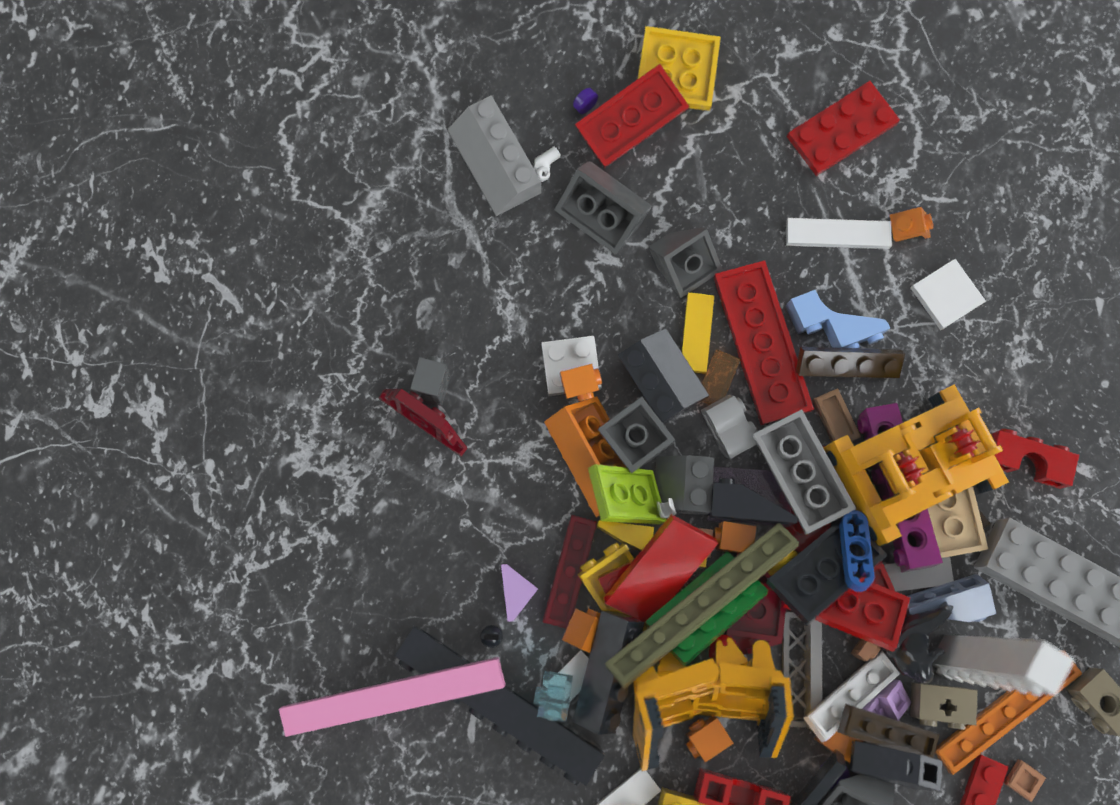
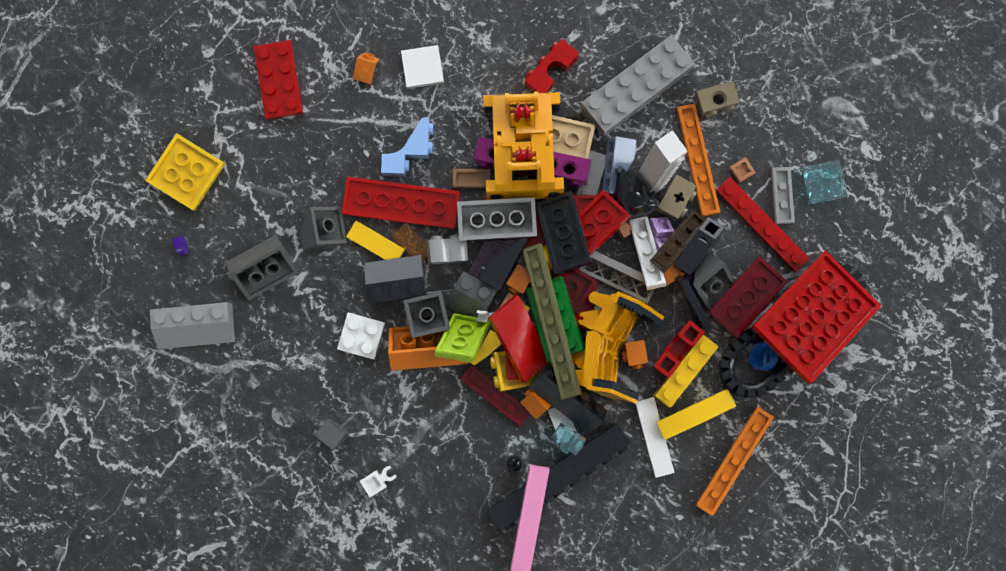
camera: 60 degrees left, 5 degrees up
(392, 464) = (376, 482): none -> white plate
(429, 420) = (358, 445): dark red wing -> none
(516, 590) = (494, 435): lavender slope -> none
(543, 162) = (212, 294): white arm -> none
(580, 382) = (376, 335): orange brick -> none
(632, 116) = (206, 219): red plate -> none
(838, 233) = (349, 118): white tile -> none
(850, 362) = (439, 153): dark brown plate -> none
(850, 561) = (555, 202): blue beam -> none

